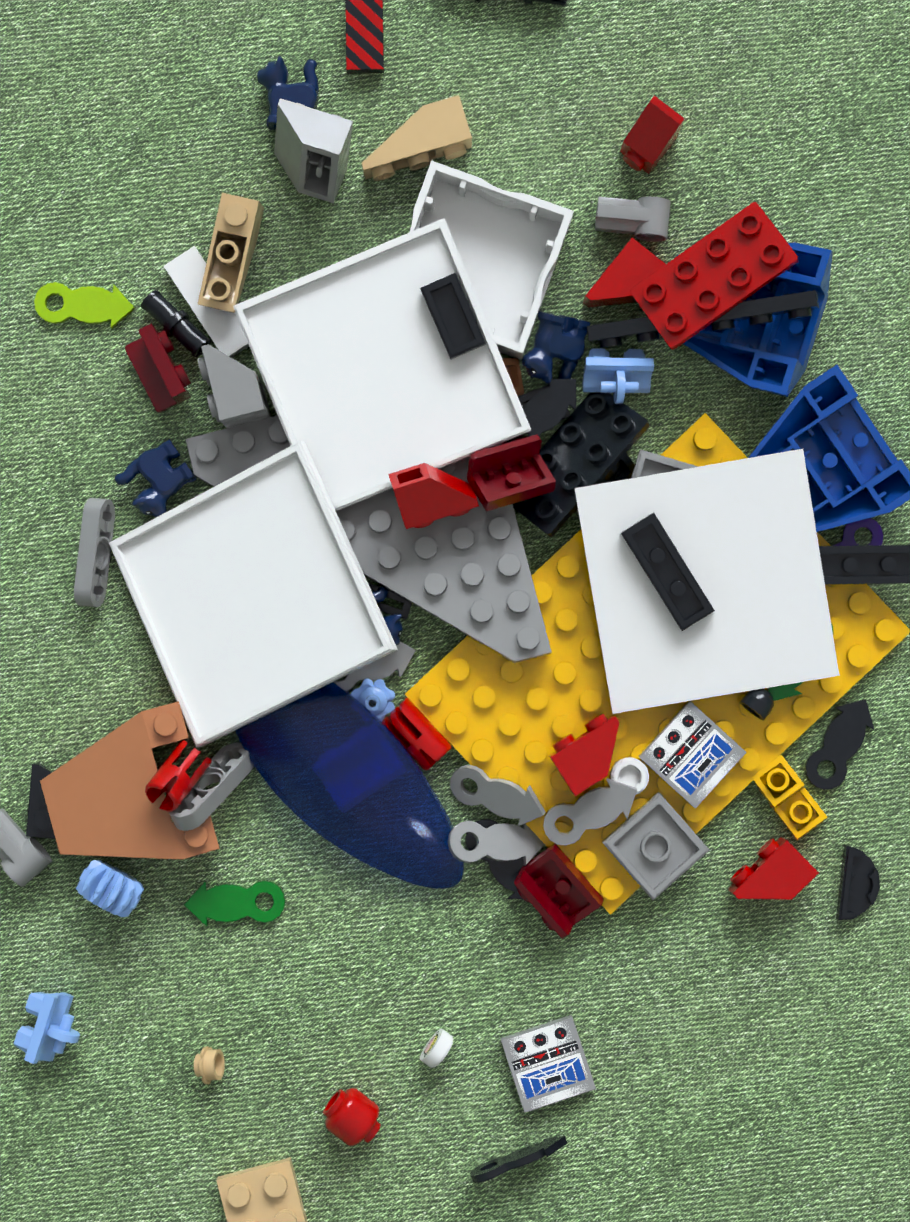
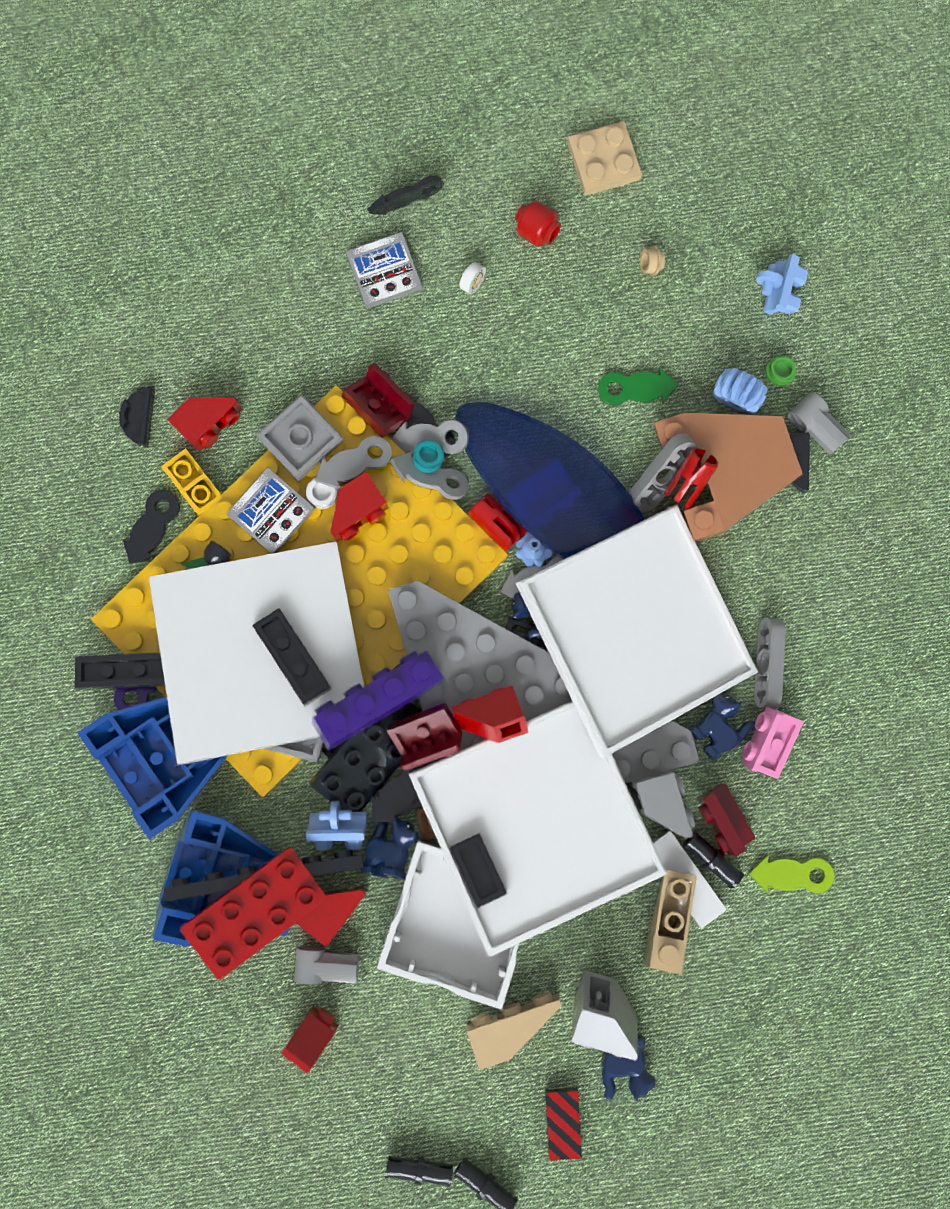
camera: 175 degrees right, 5 degrees down
(56, 916) = (780, 371): none -> bright green plate
(99, 457) = (771, 742): none -> bright pink bracket
(498, 817) = (428, 456): none -> teal tile
(575, 509) = (376, 700): none -> dark purple brick

